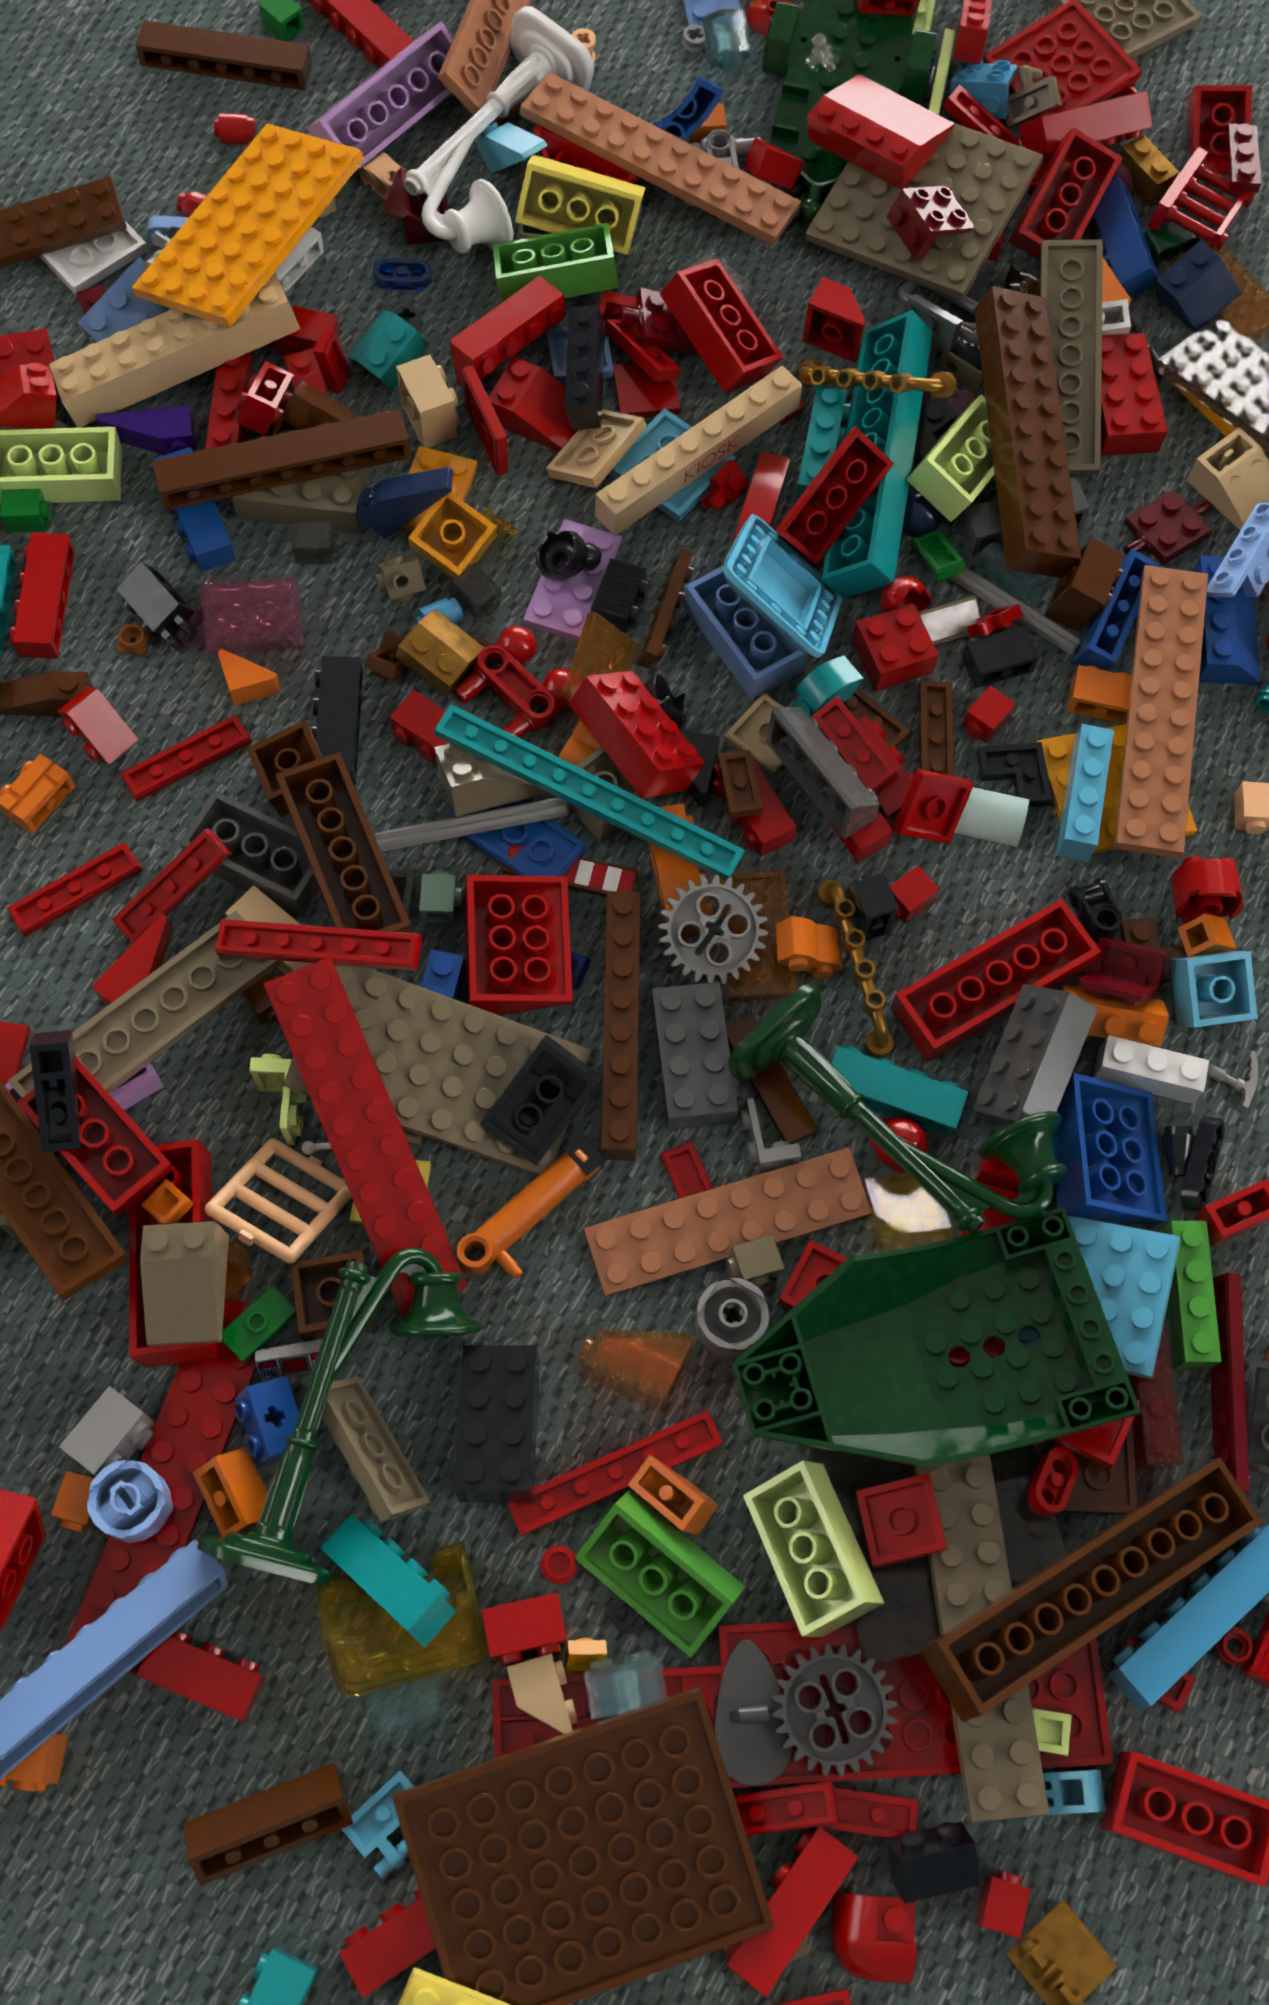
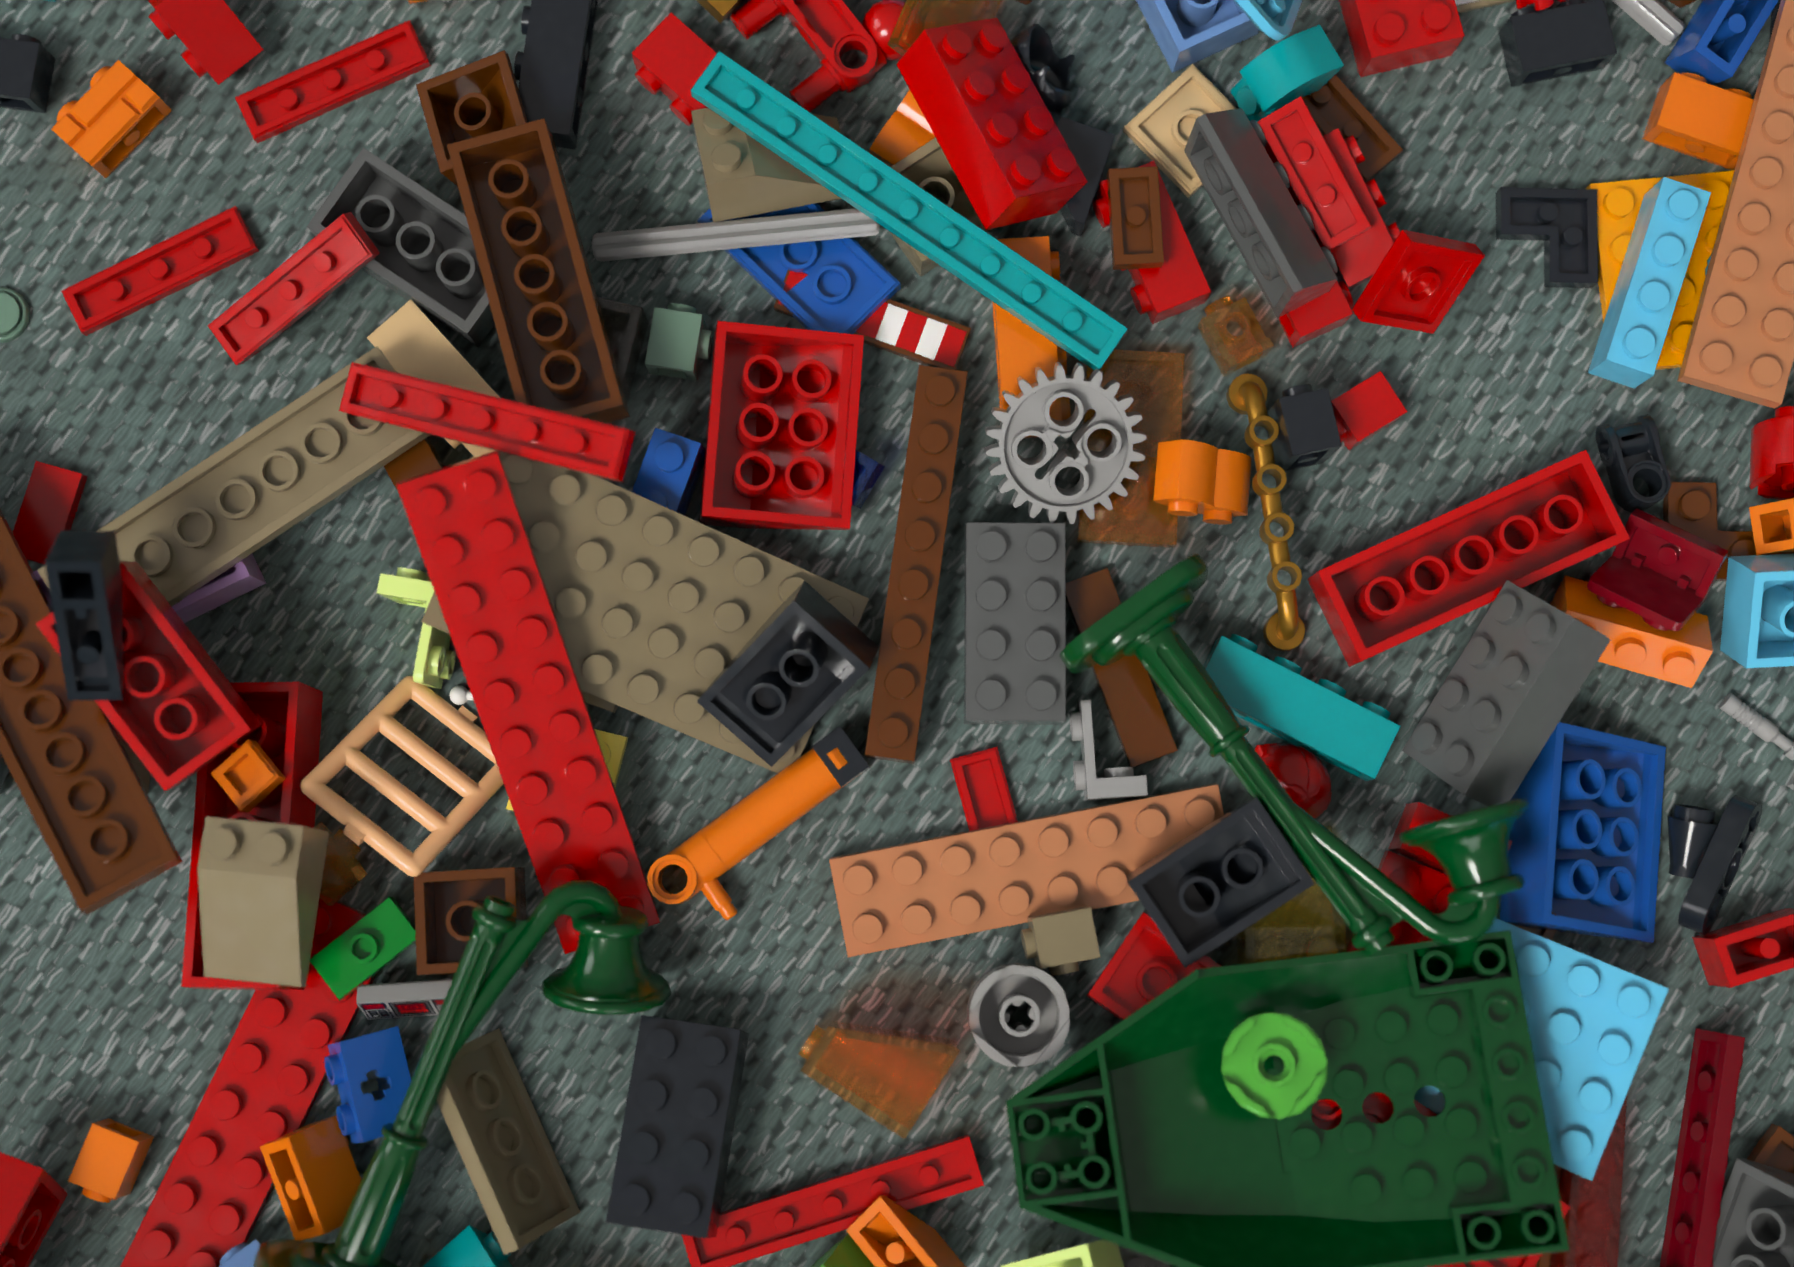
camera: 10 degrees right, 15 degrees up
(108, 1432) = (151, 1084): light grey brick -> none
(129, 1501) = (171, 1181): light blue brick -> none
(136, 962) = (238, 400): red slope -> none
(816, 865) = (1228, 350): none -> clear orange brick
(859, 1201) = (1219, 881): none -> black slope
(912, 1297) = (1303, 1065): none -> bright green plate
(936, 727) = (1441, 154): reddish brown plate -> none
(988, 715) = (1523, 136): red brick -> none
(993, 817) = (1507, 302): light aqua brick -> none
(1151, 1069) = (1671, 717): white brick -> none
(1193, 1300) = (1669, 1075): bright green brick -> none

